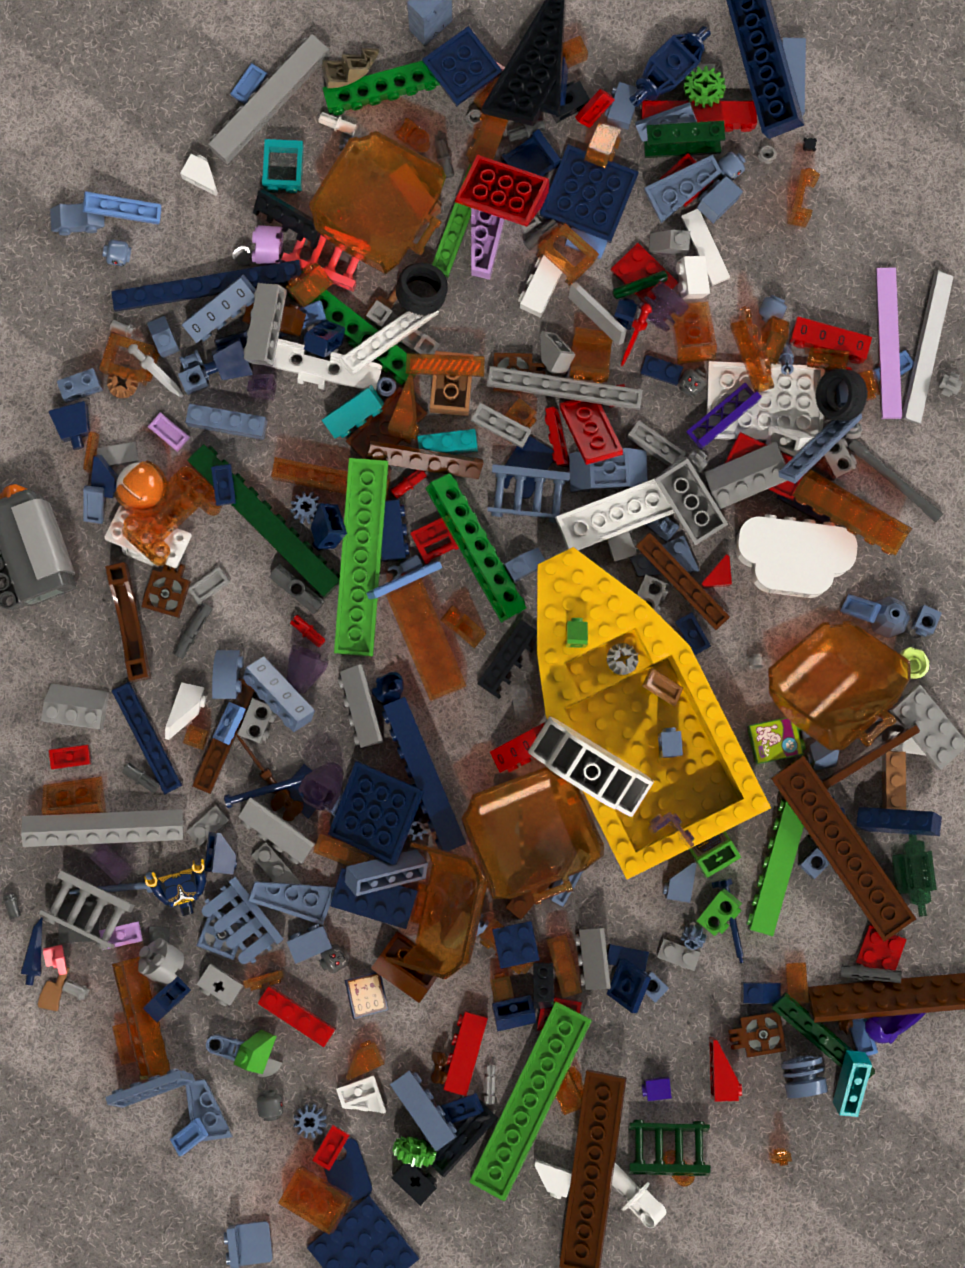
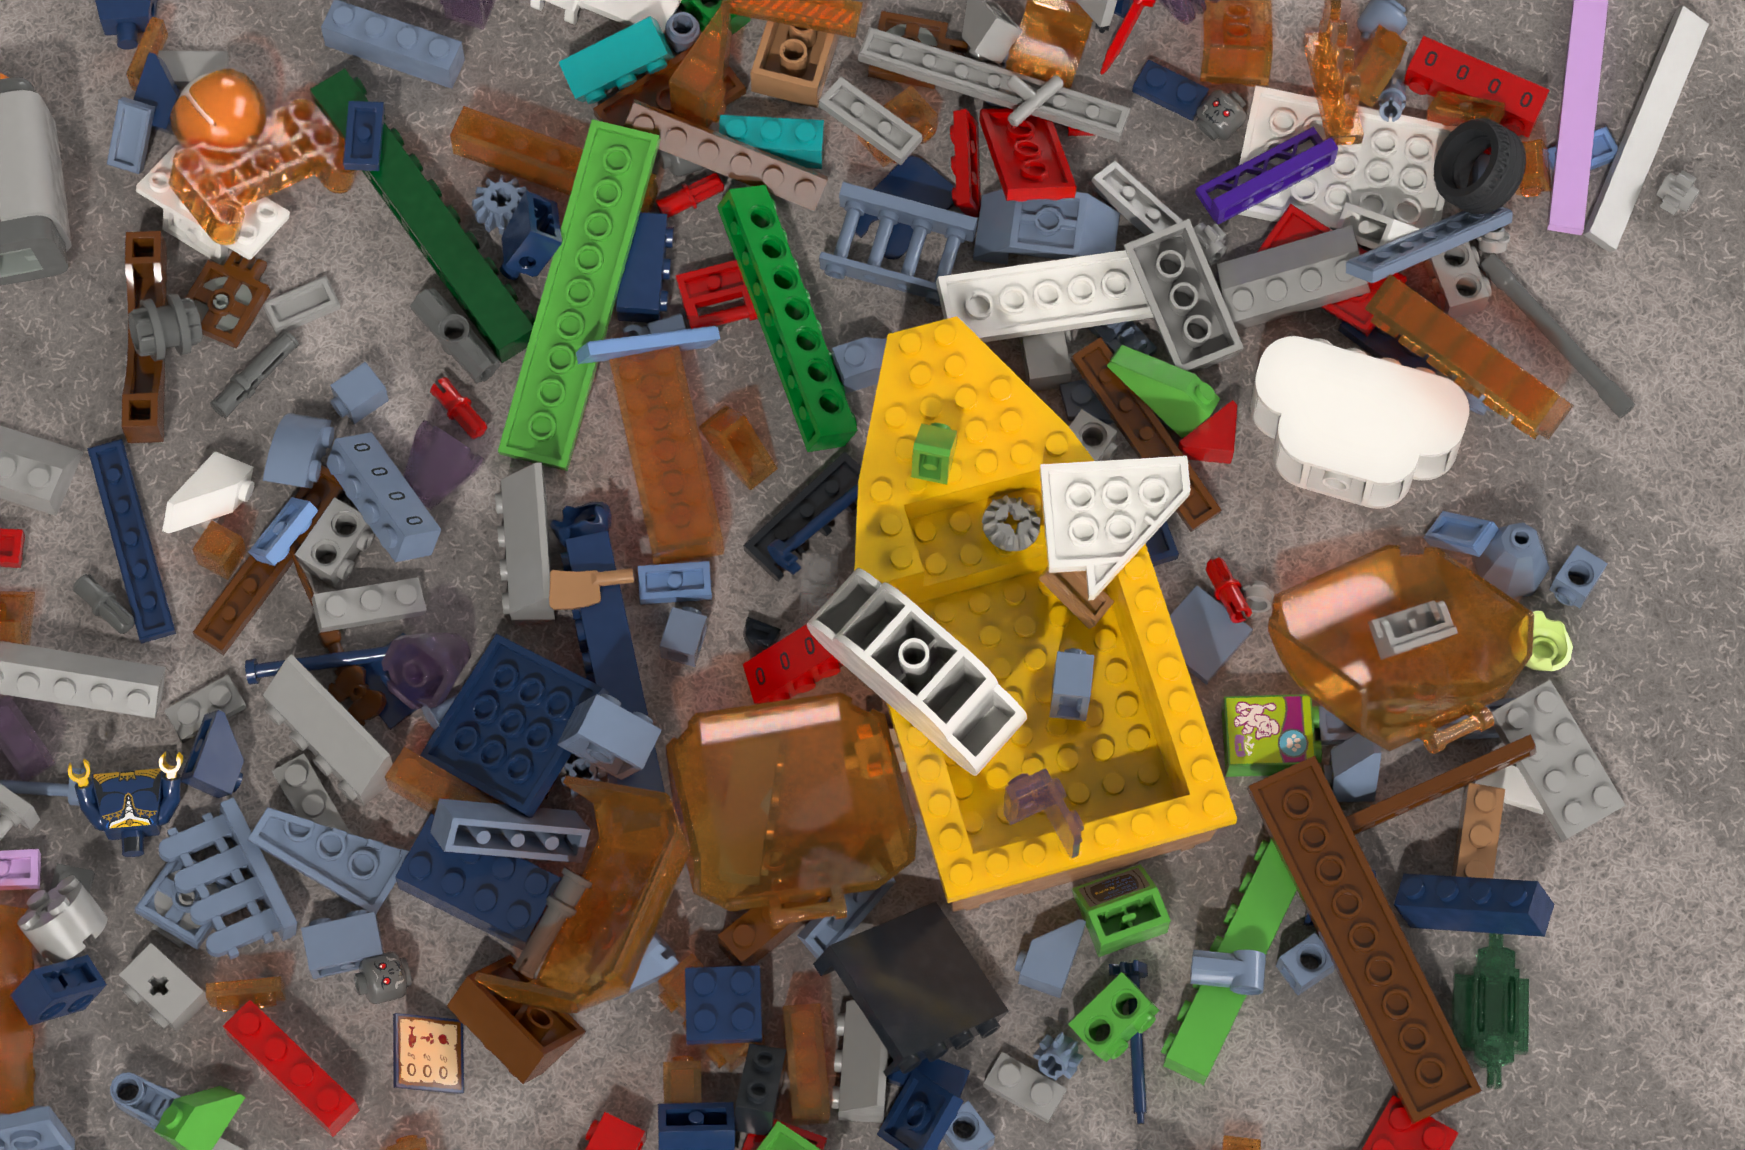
camera: 10 degrees right, 15 degrees down
(139, 618) = (165, 327): none -> dark grey piece
(168, 432) = (289, 47): lavender tile -> none
(251, 633) = (358, 393): none -> sand blue brick
(283, 753) = (368, 604): none -> light grey plate
(398, 733) = (582, 589): none -> medium nougat piece
(420, 908) = (560, 906): none -> dark grey pin
(431, 819) = (610, 736): none -> sand blue brick
(443, 710) = (674, 582): none -> medium blue plate
(454, 740) = (683, 635): none -> sand blue brick
(495, 732) = (759, 635): none -> black tile
(499, 686) = (782, 551): none -> dark blue piece
(588, 395) = (1032, 98): none -> light grey piece
(614, 918) = (916, 986): none -> black panel
(674, 650) = (1107, 512): none -> white wing
(689, 555) = (1169, 391): none -> bright green slope
(731, 687) = (1206, 634): none -> sand blue tile
(740, 661) = (1228, 590): none -> red axle
(776, 879) = (1239, 971): none -> sand blue piece
(843, 670) = (1412, 628): none -> light grey hinge

